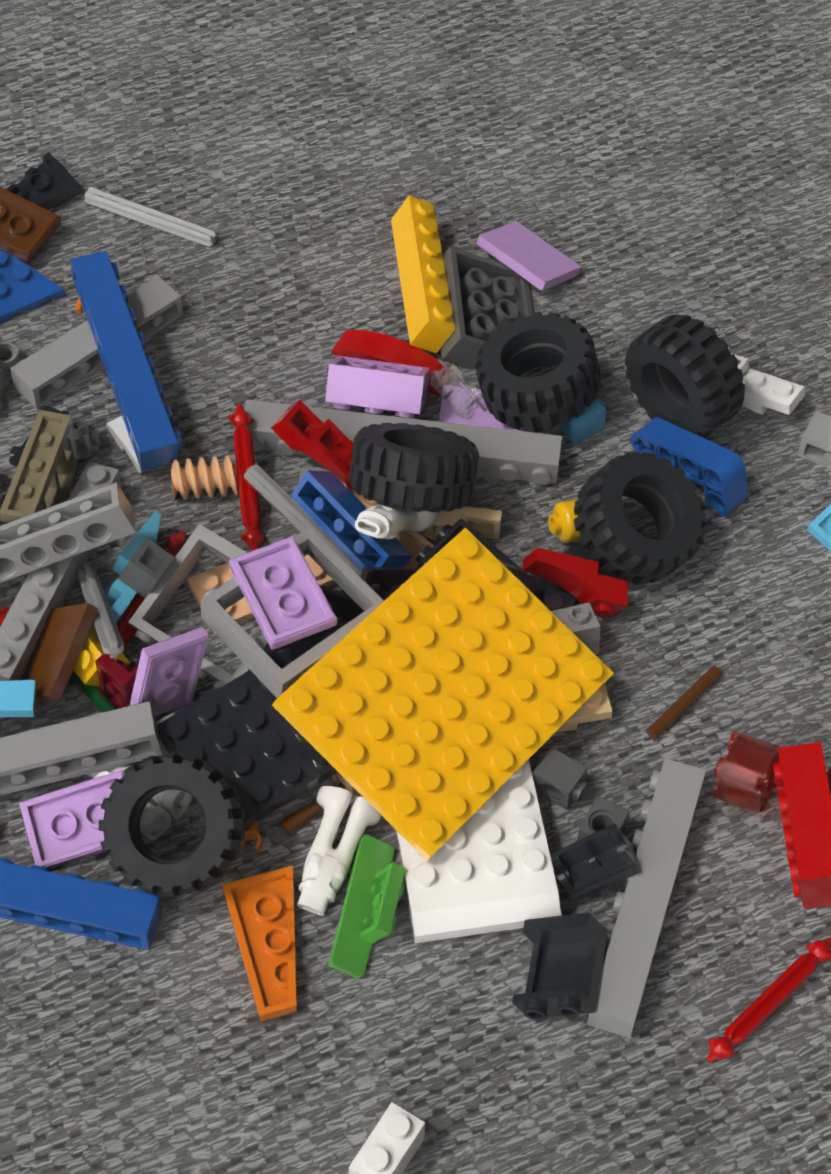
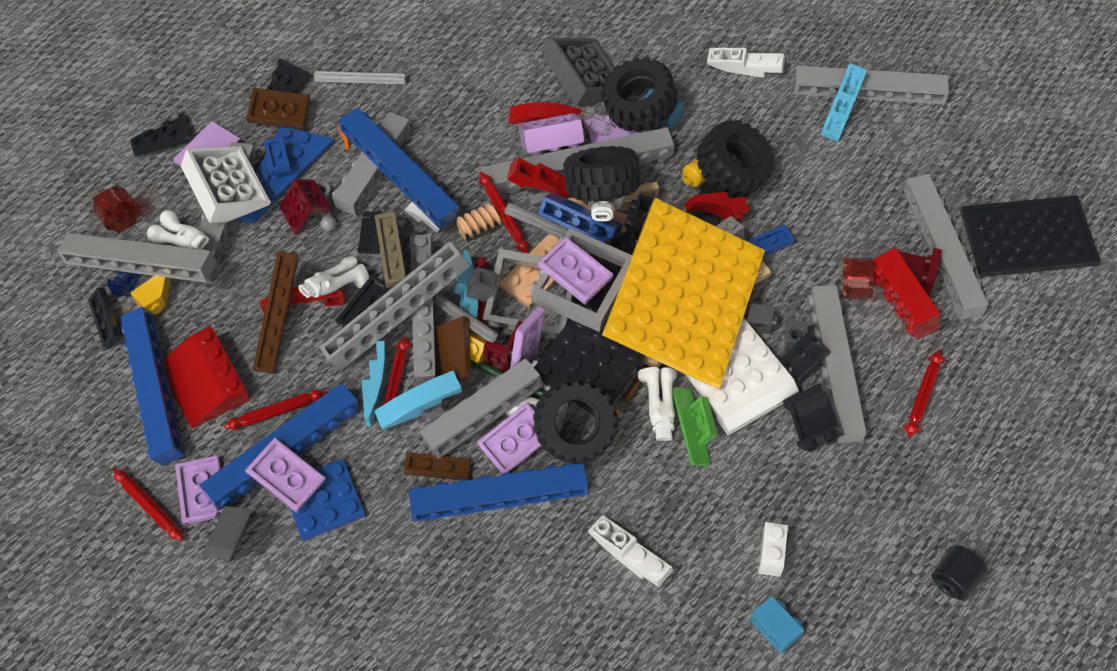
camera: 20 degrees left, 5 degrees up
(161, 1064) = (629, 552): none -> white slope
(265, 933) = (645, 459): orange wing -> none
(422, 275) = (541, 59): yellow brick -> none
(528, 255) = (592, 28): lavender tile -> none
(642, 666) = (773, 240): none -> blue plate
(684, 702) = (802, 252): reddish brown bar -> none
(685, 375) = (722, 70): black tyre -> none
(705, 462) = (758, 115): blue beam -> none

